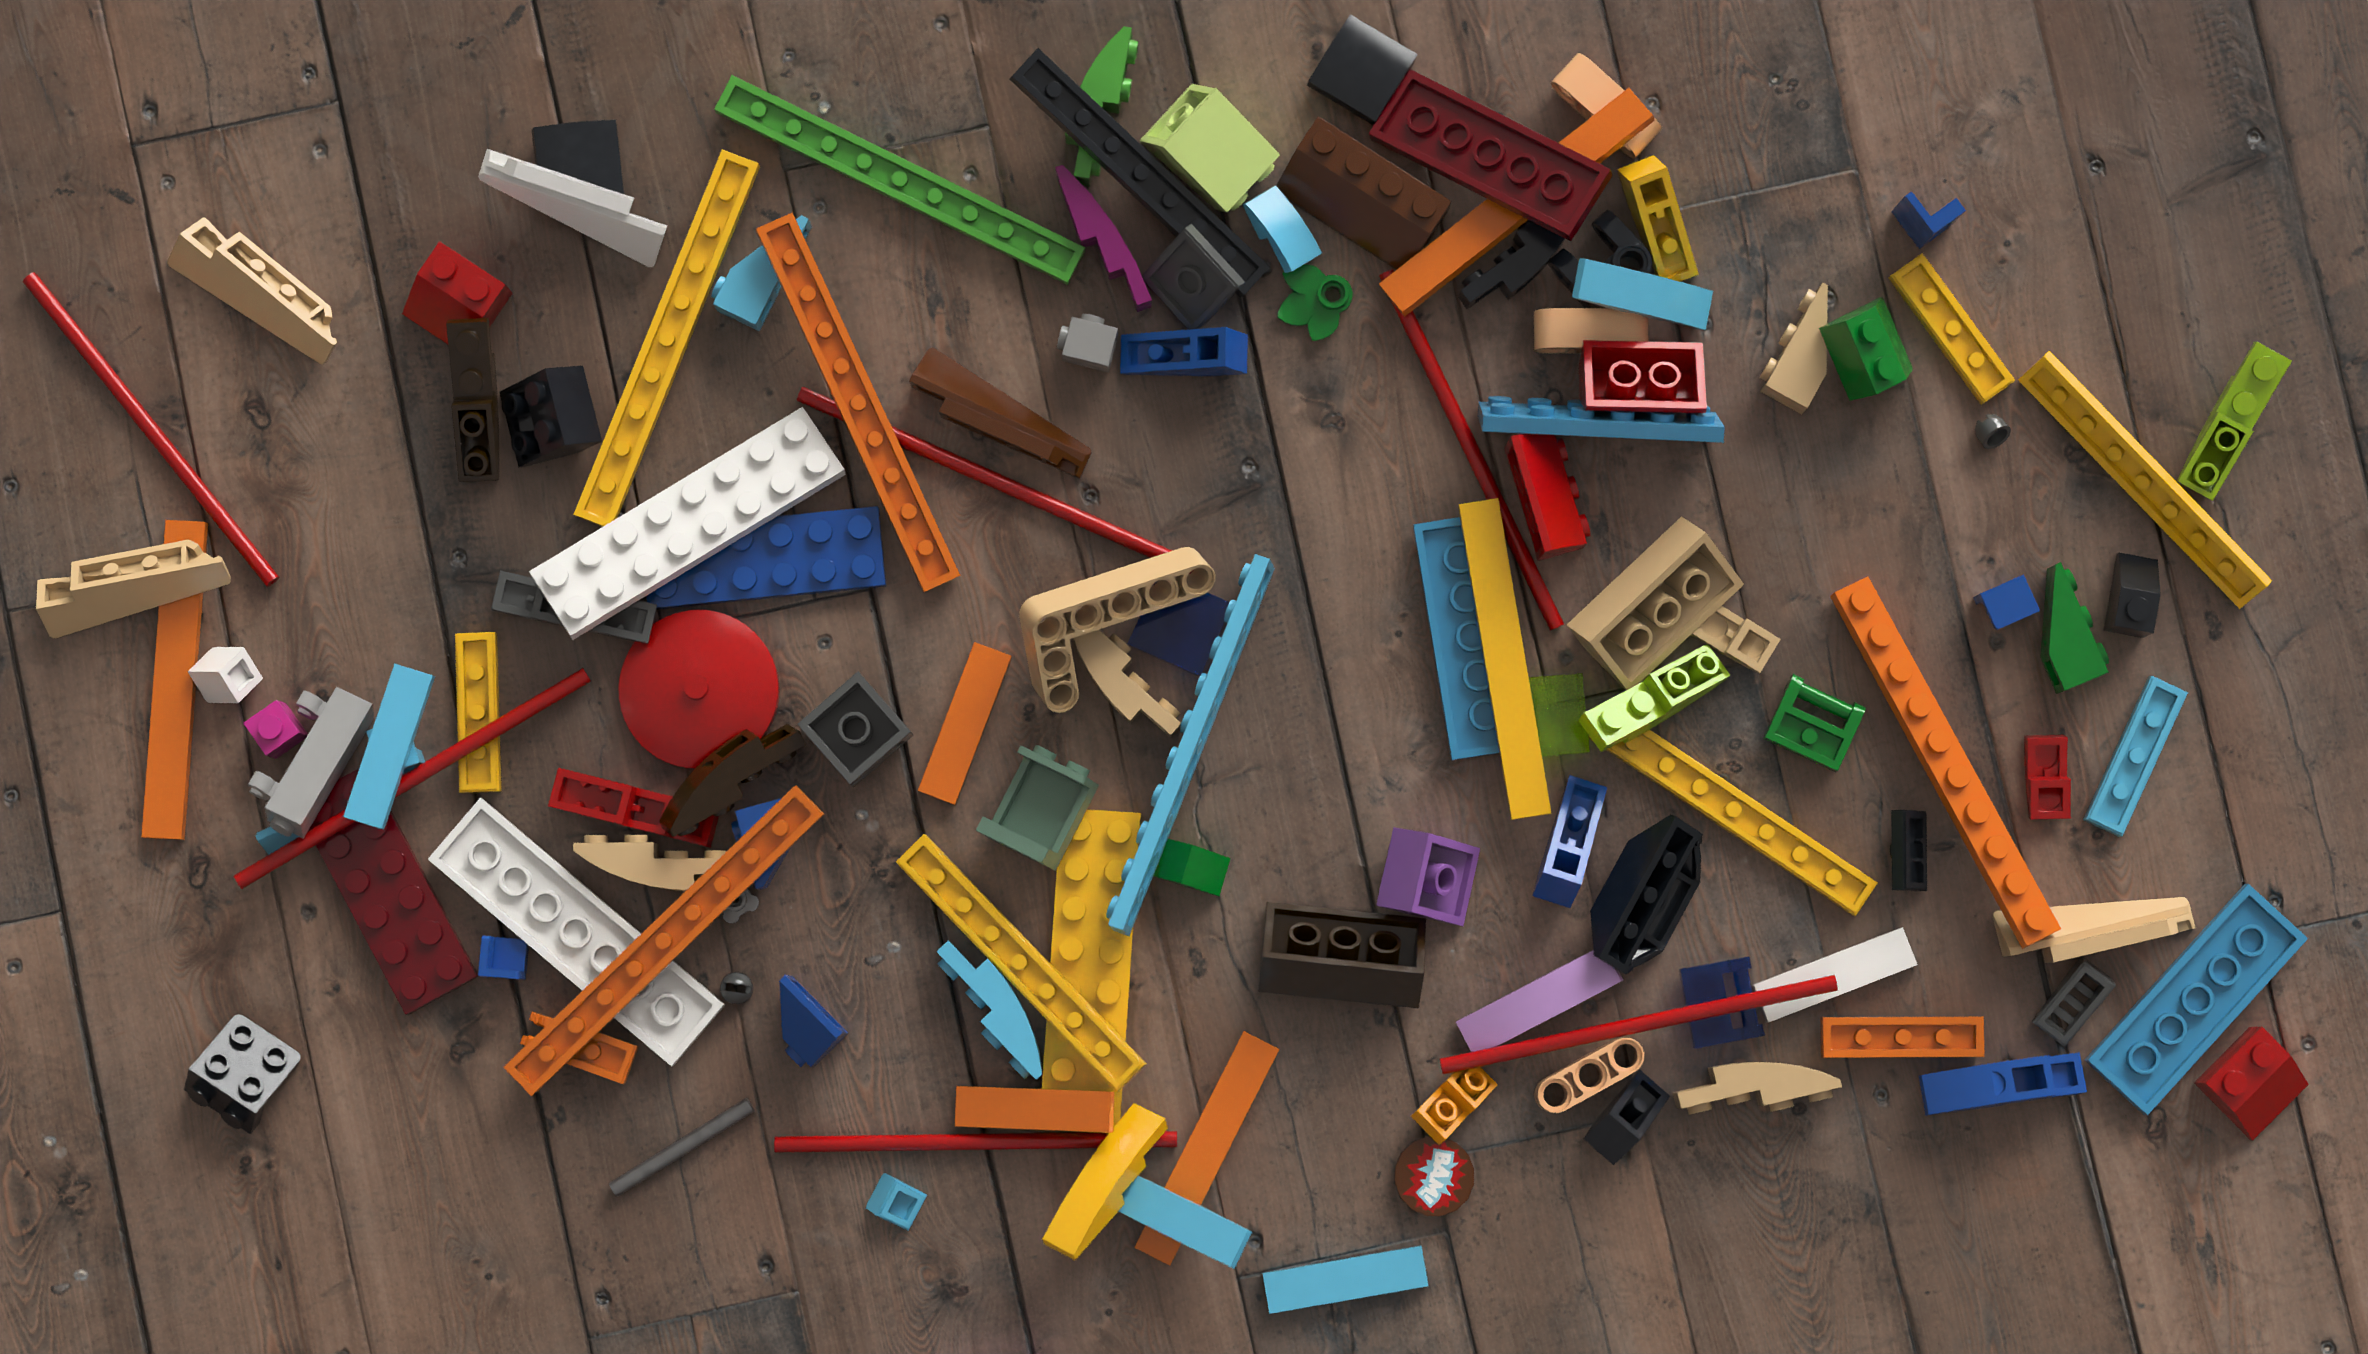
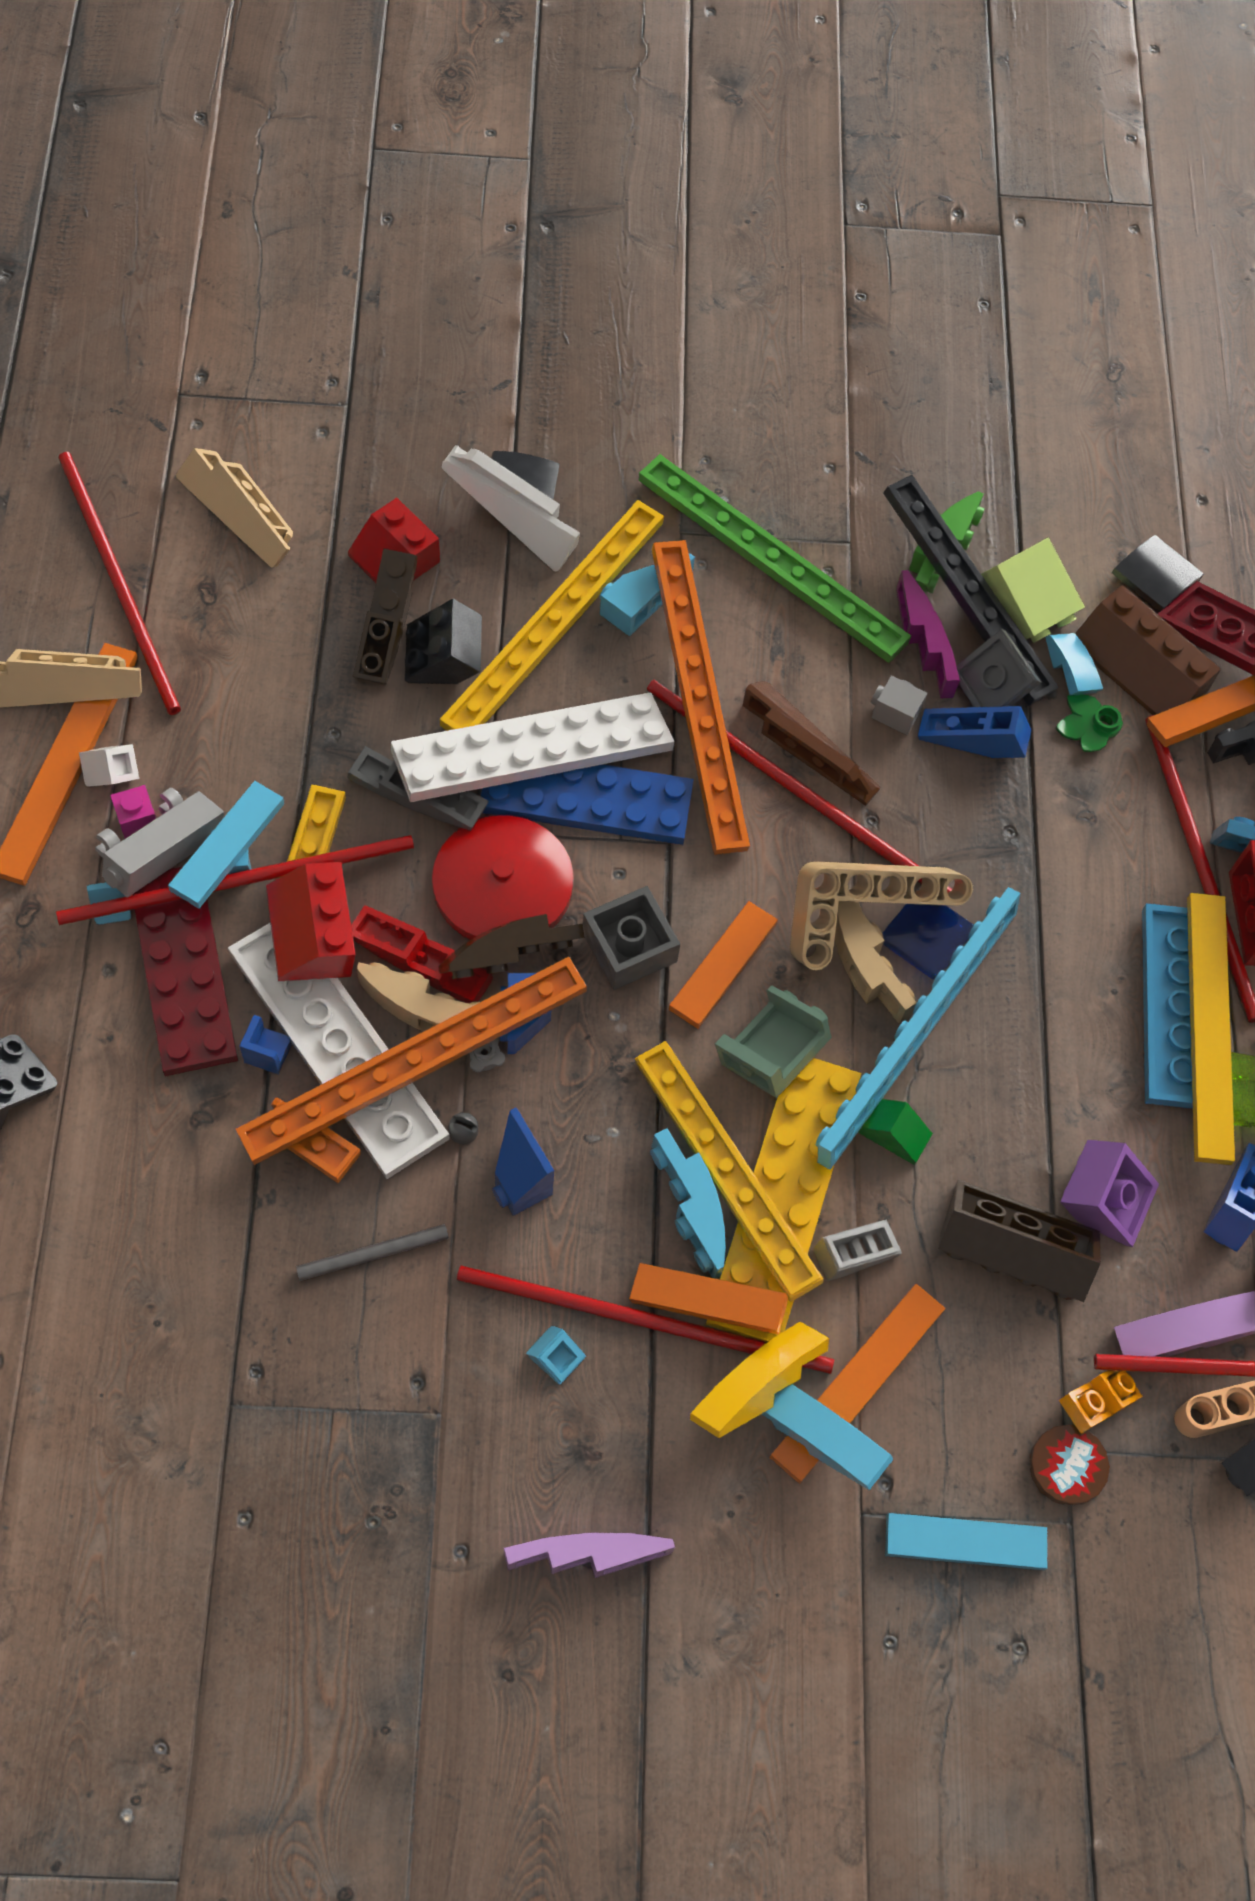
camera: 10 degrees right, 20 degrees down
(507, 813) = (311, 923): none -> red slope
(1150, 1029) = (834, 1256): none -> light grey slope

